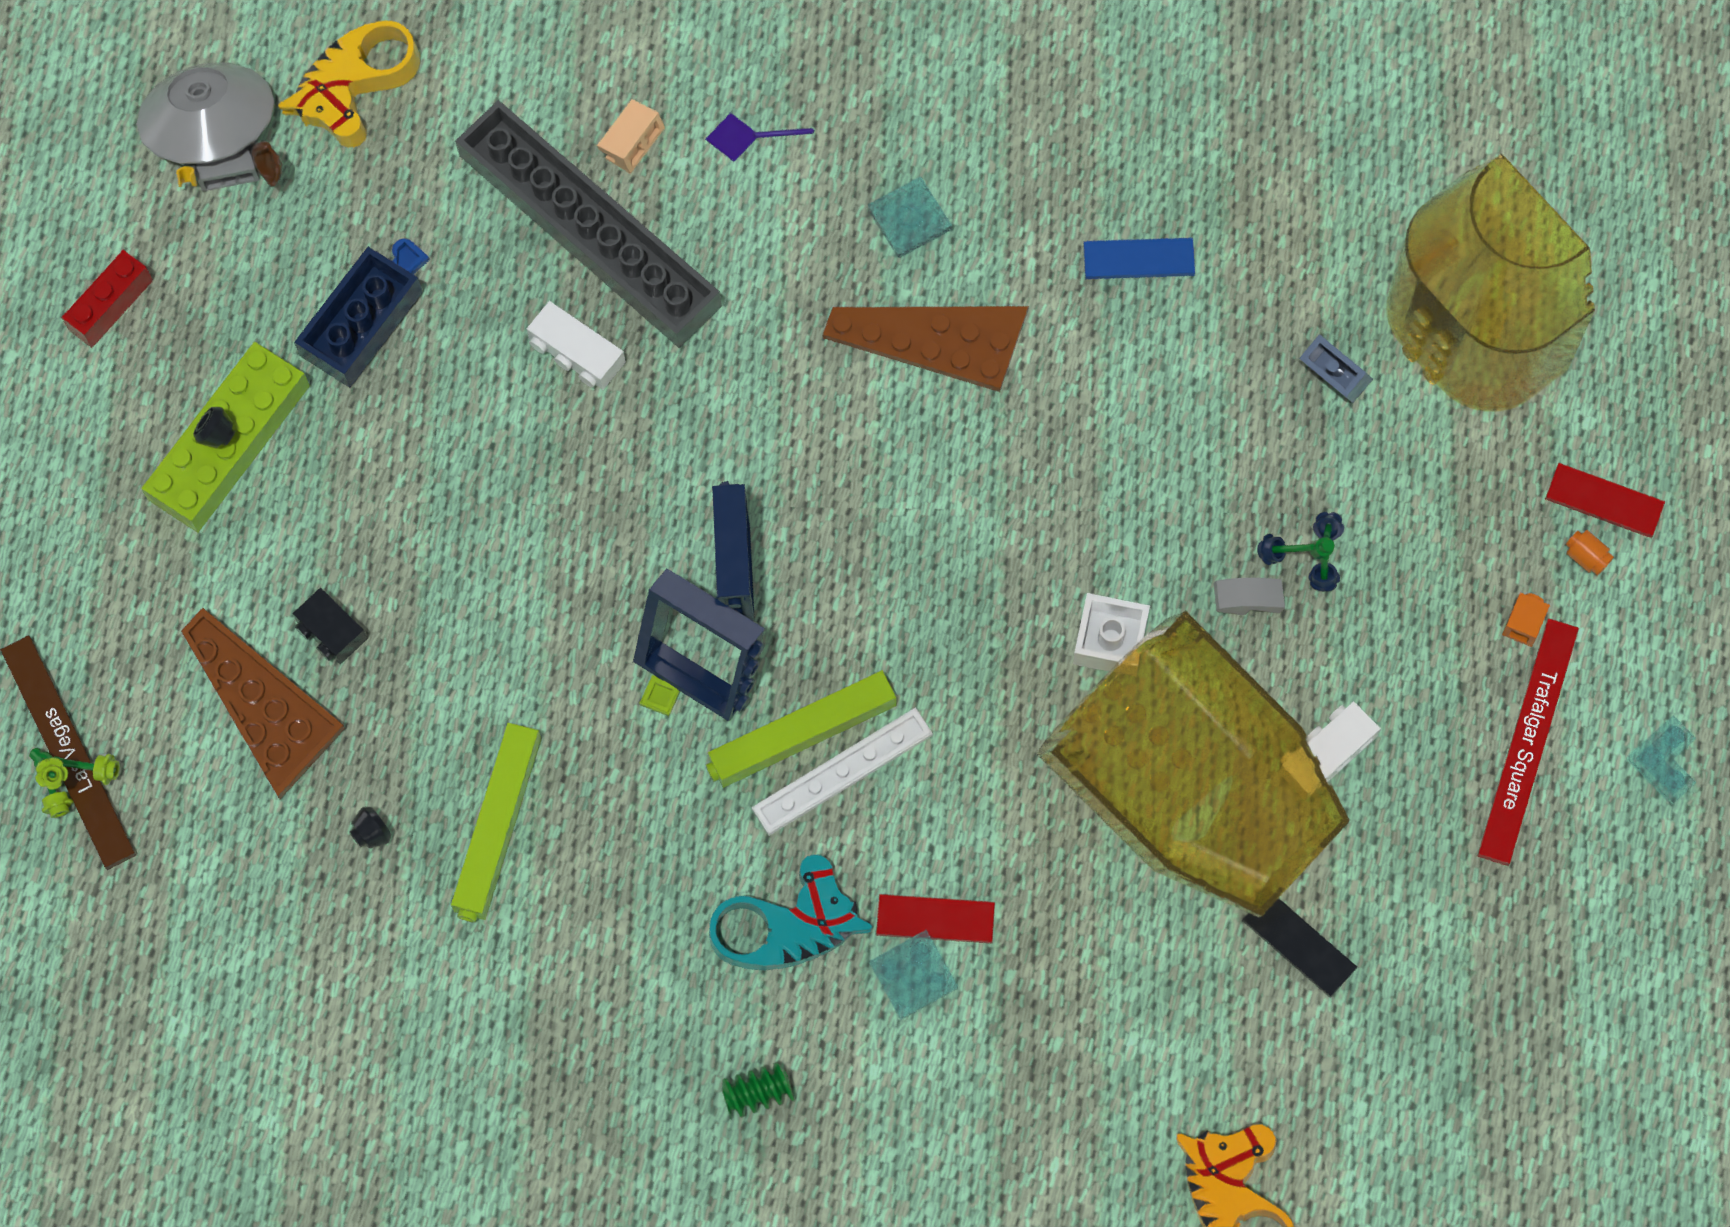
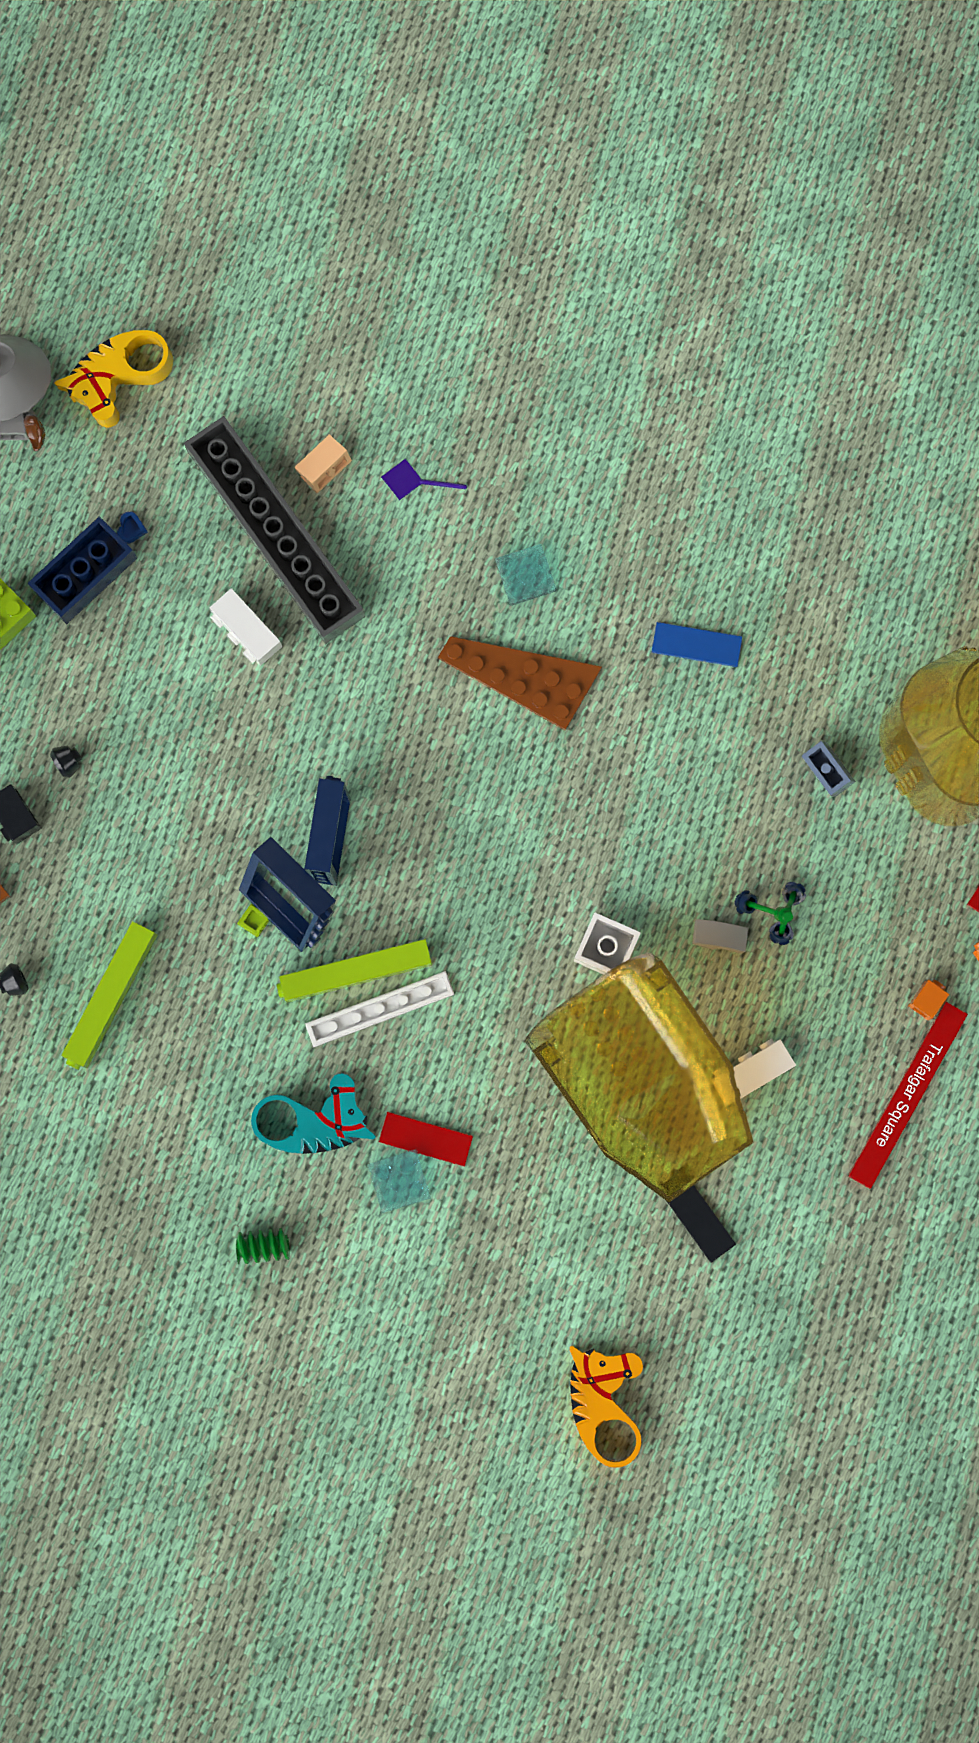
camera: 10 degrees right, 10 degrees up
(383, 547) = (66, 760): none -> black cone

